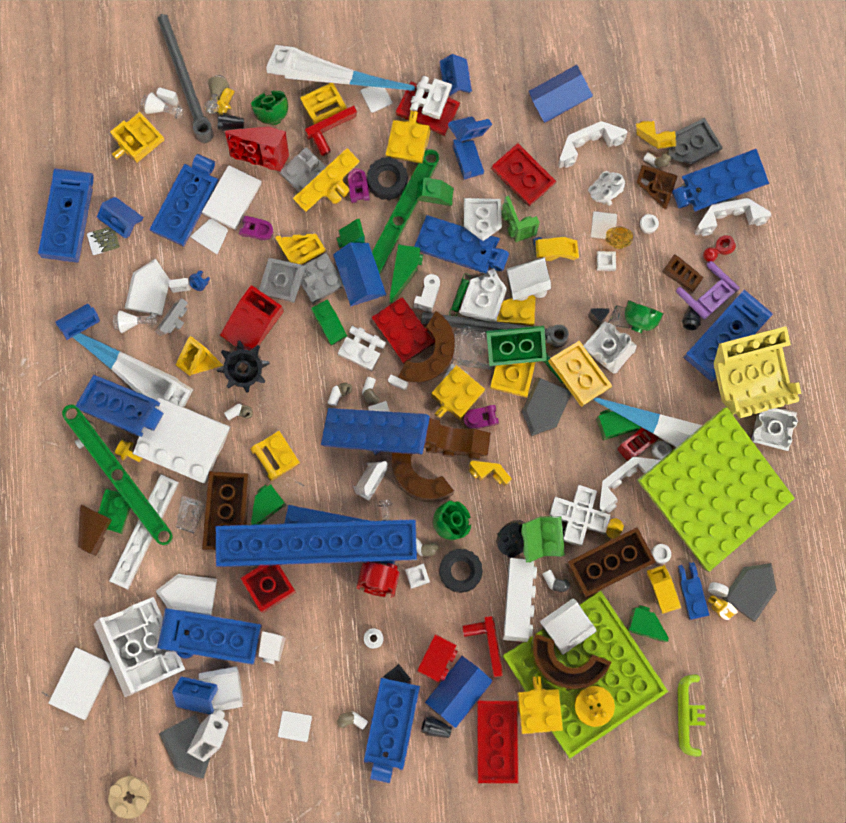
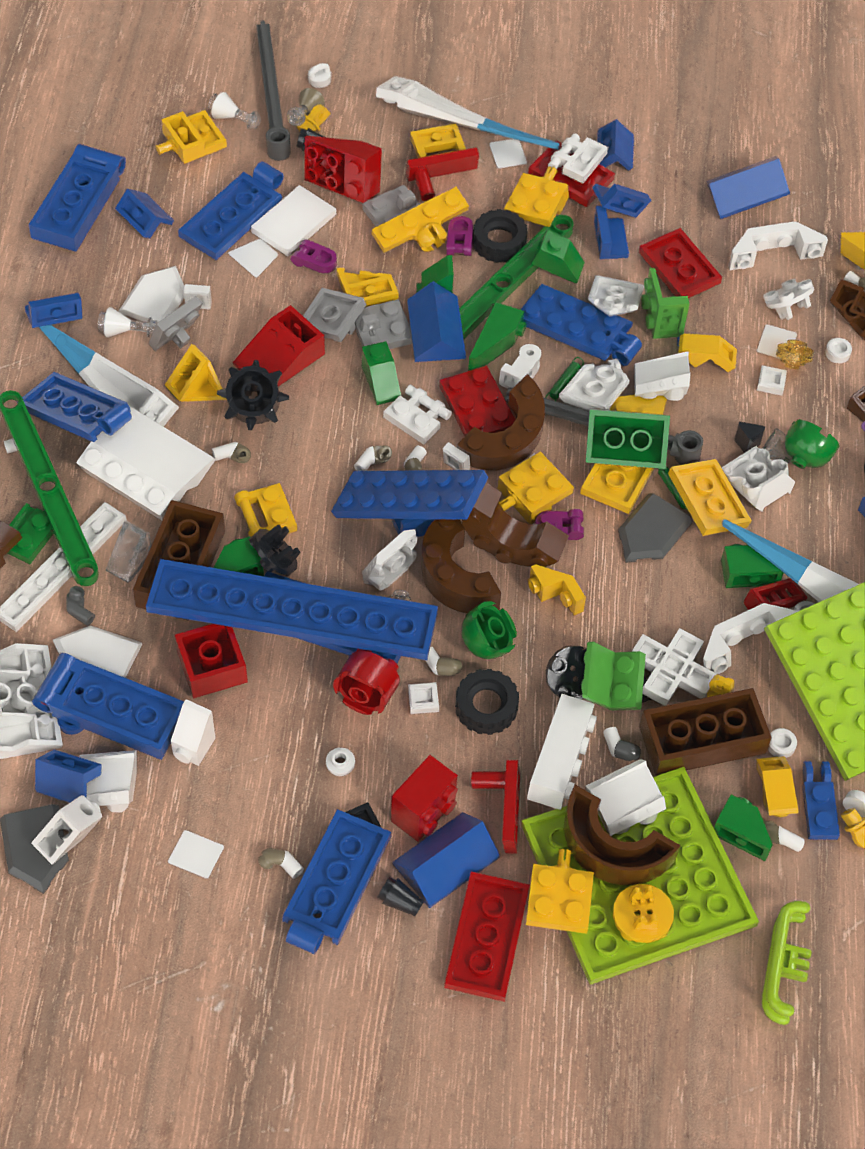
camera: 15 degrees right, 20 degrees down
(103, 240) = (115, 236): sticker -> none
(124, 450) = (67, 465): yellow piece -> none
(163, 561) = (75, 605): none -> dark grey arm
(167, 96) = (244, 100): white tile -> none
(198, 282) = (222, 299): blue plate -> none
(218, 56) = (319, 75): none -> white tile
(270, 108) = (375, 131): green cylinder -> none
(290, 491) = (274, 551): none -> black plate
(471, 348) = (565, 440): clear slope -> none
(673, 625) = (784, 837): none -> white arm

